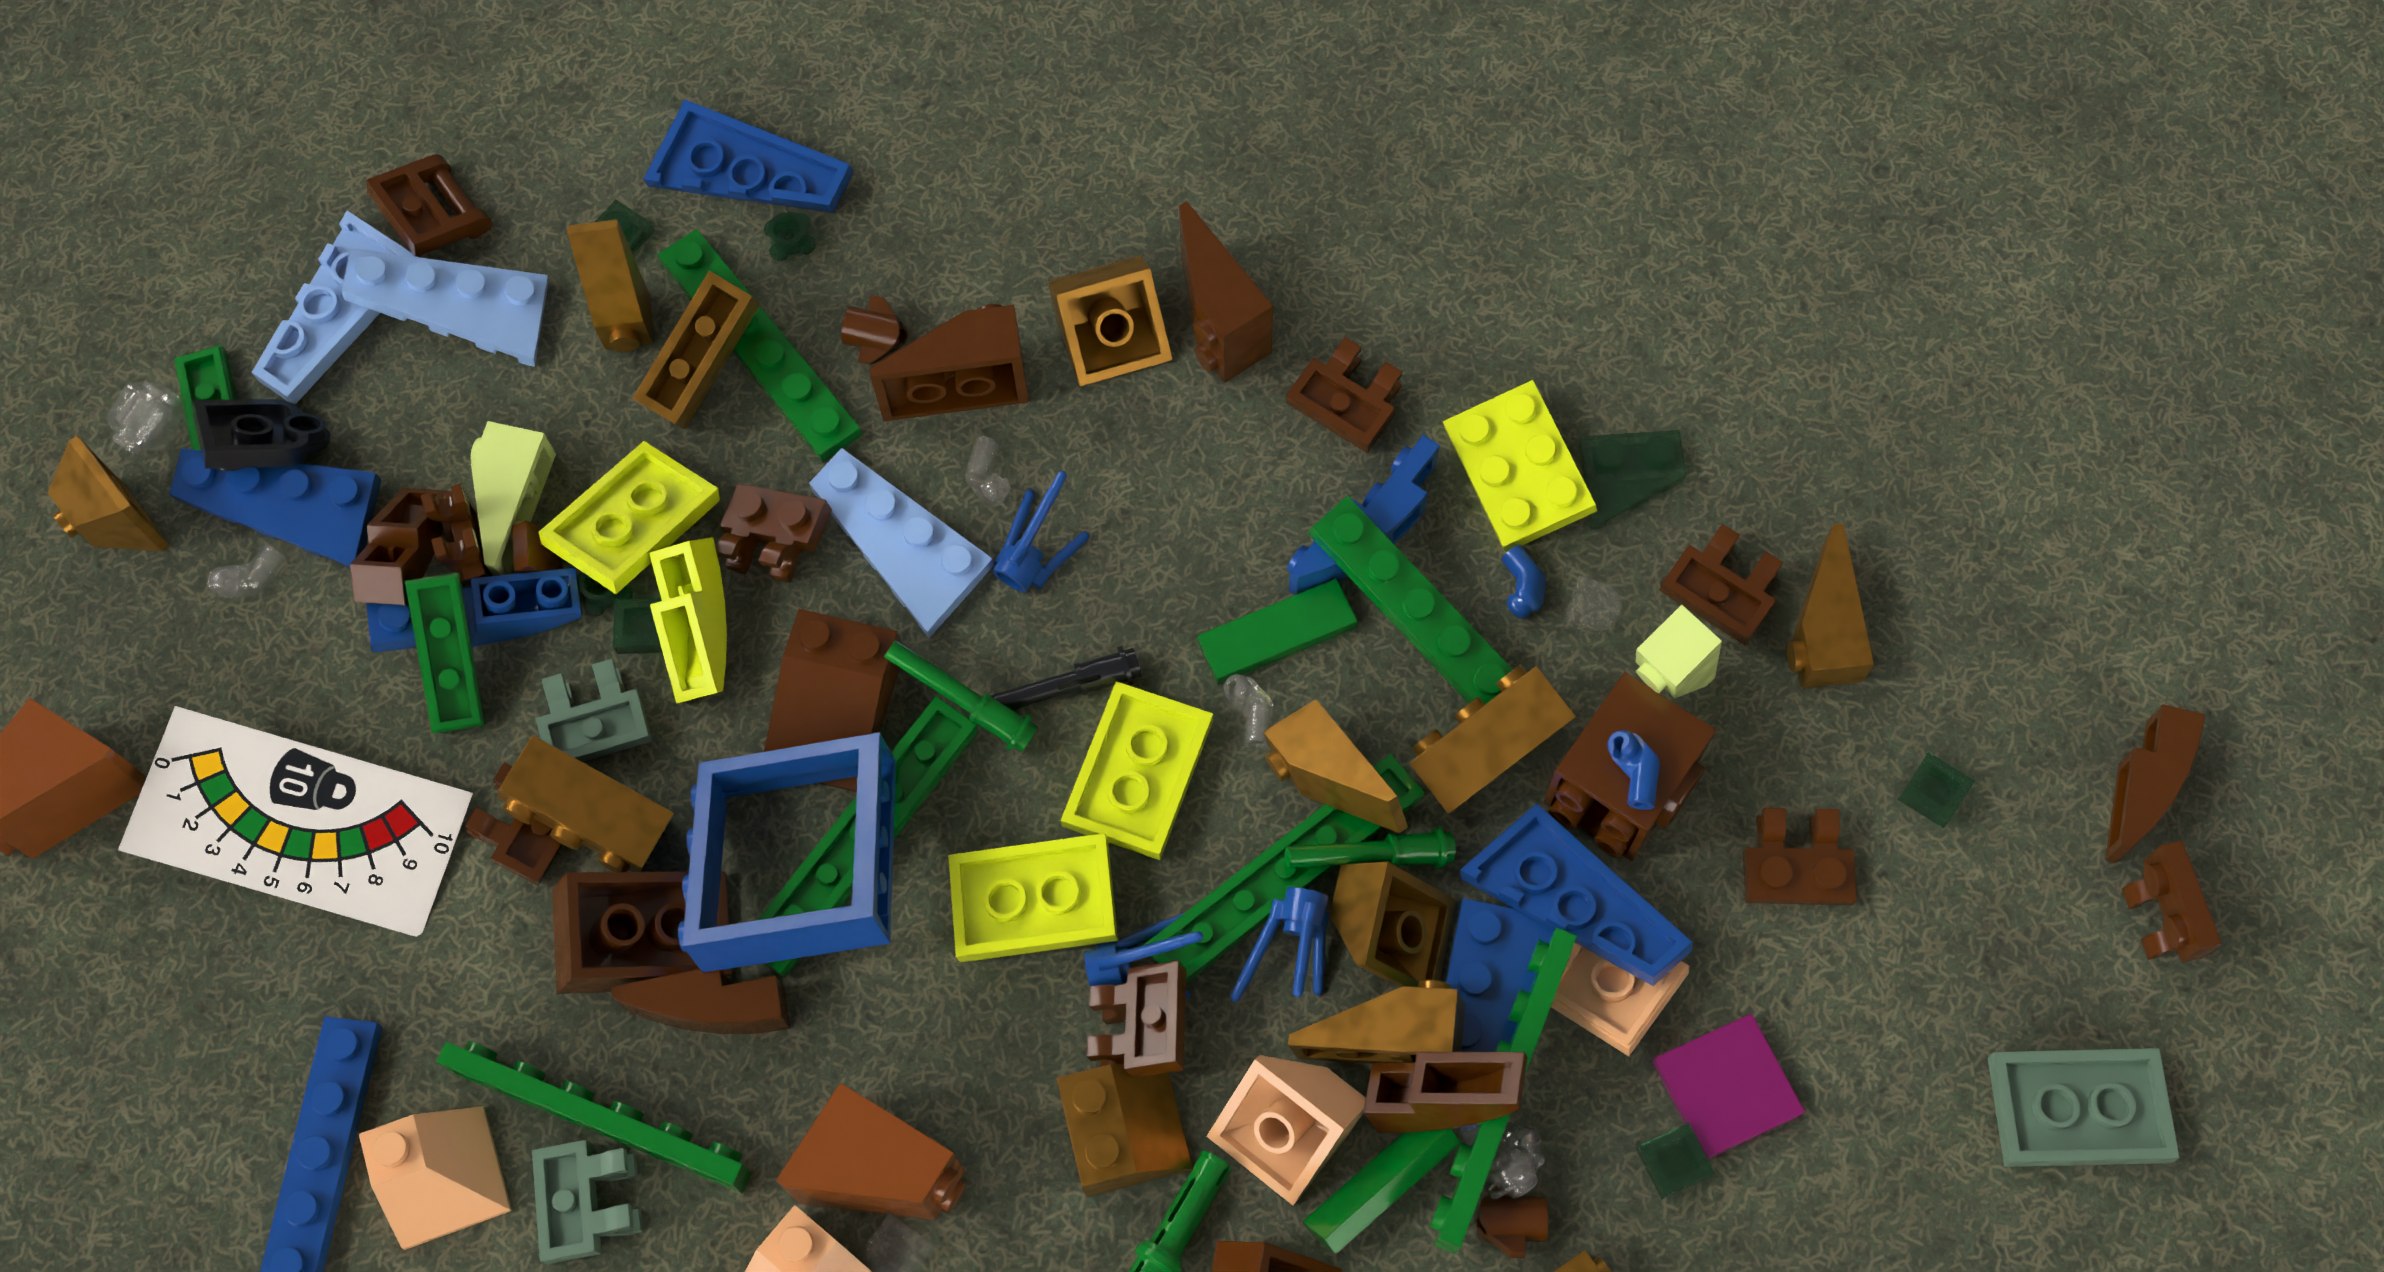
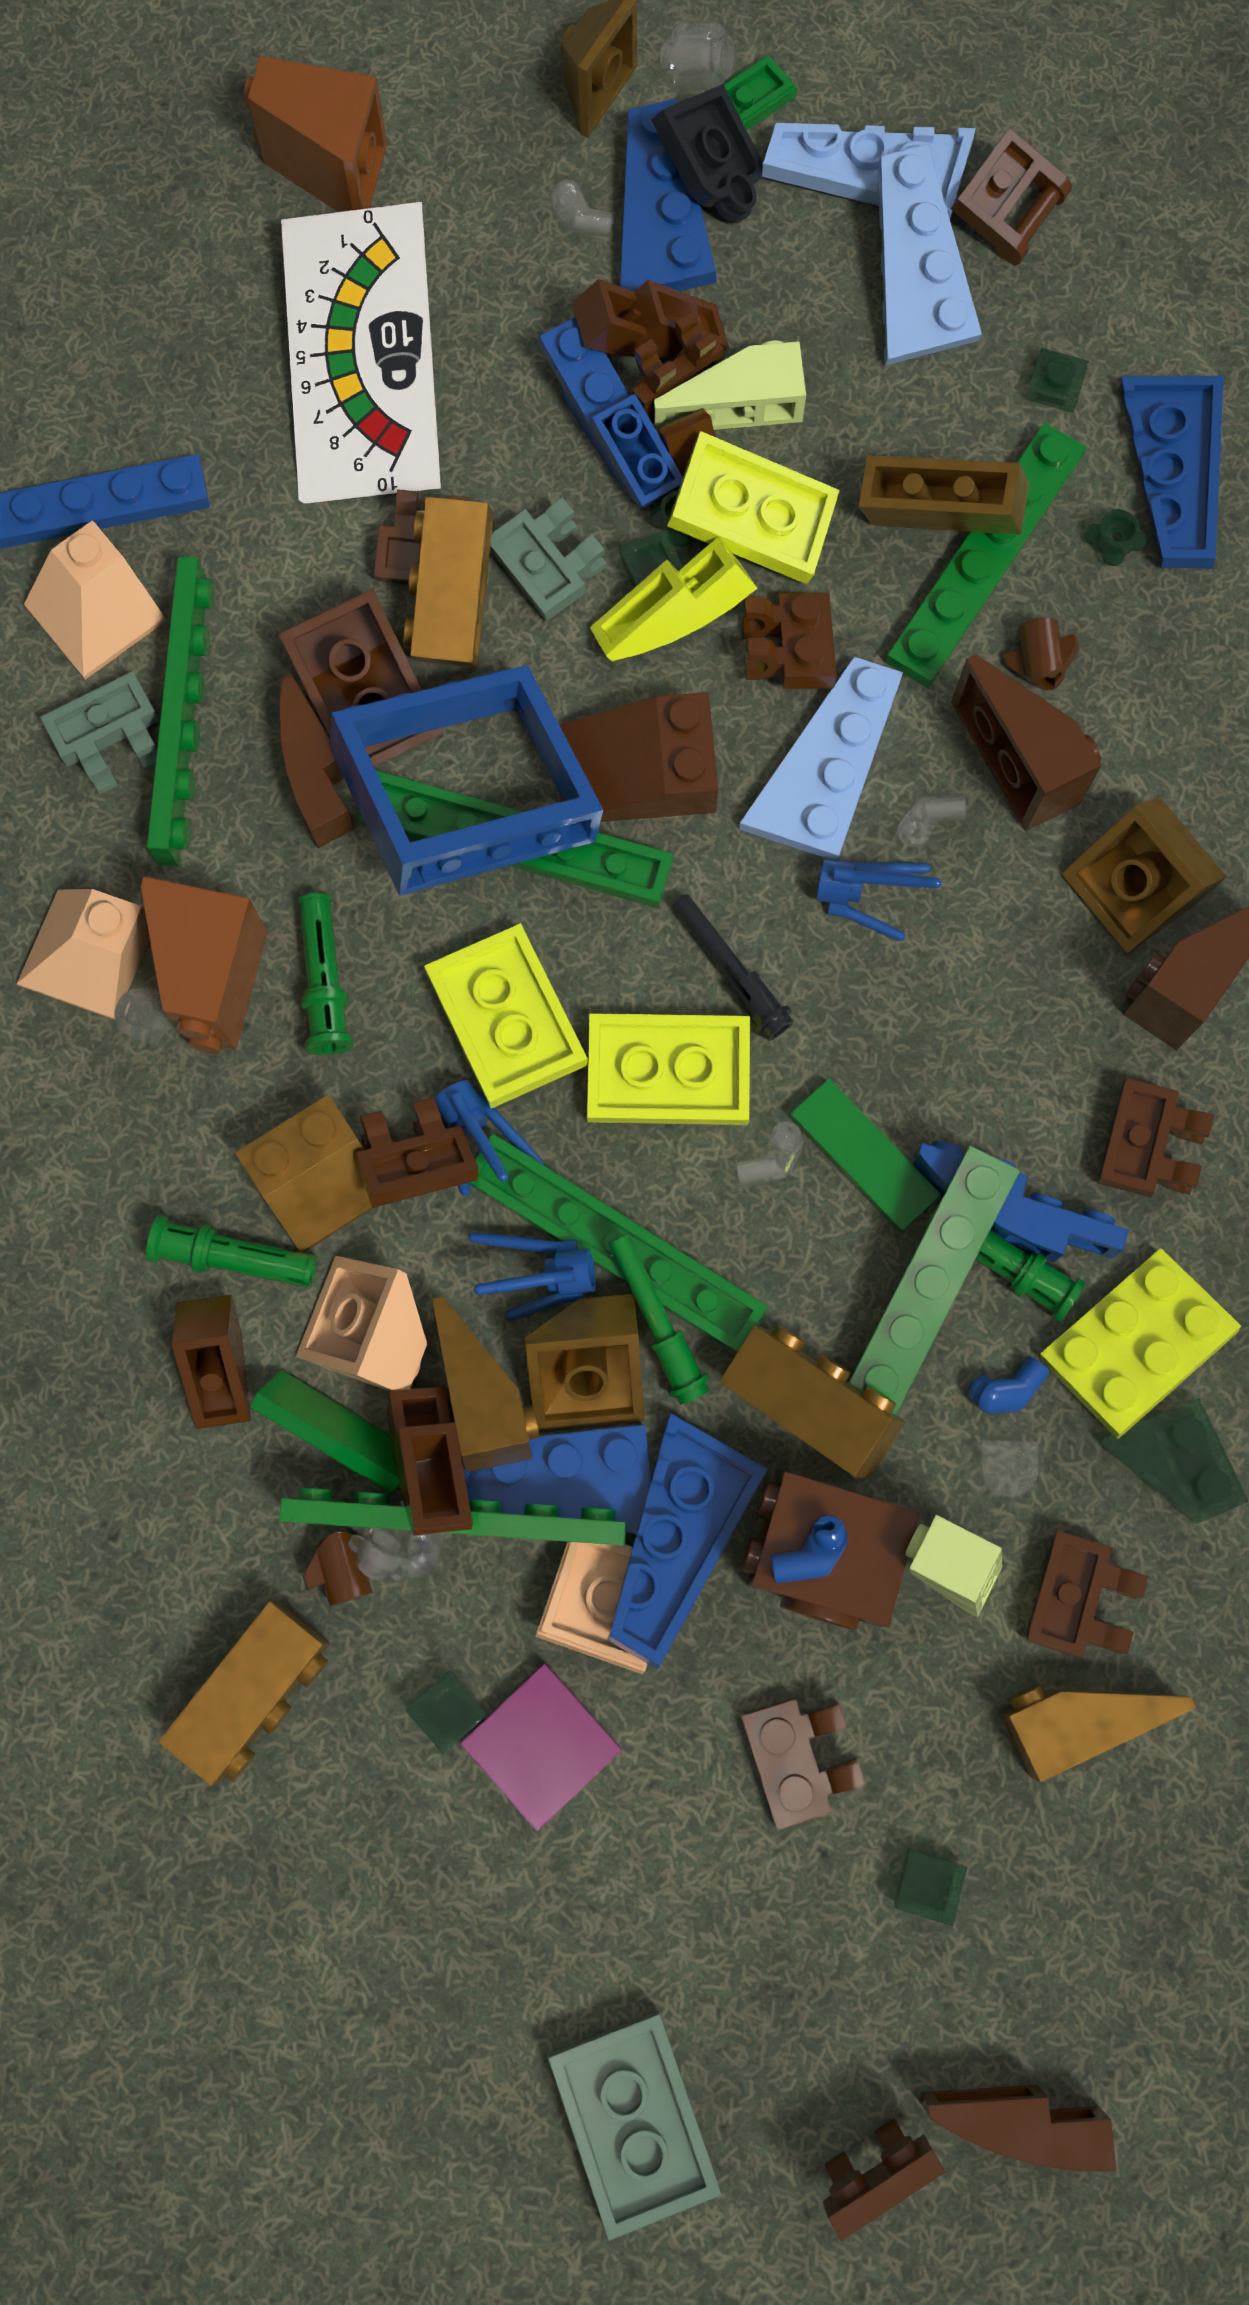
camera: 70 degrees right, 10 degrees up
(445, 652) = (557, 403): green tile -> none
(612, 285) = (980, 389): pearl gold slope -> none
(949, 1064) = (322, 1000): none -> green pin
(984, 709) = (673, 904): green pin -> none
(1330, 768) = (733, 1239): pearl gold slope -> none
(1429, 533) = (1029, 1274): none -> green pin

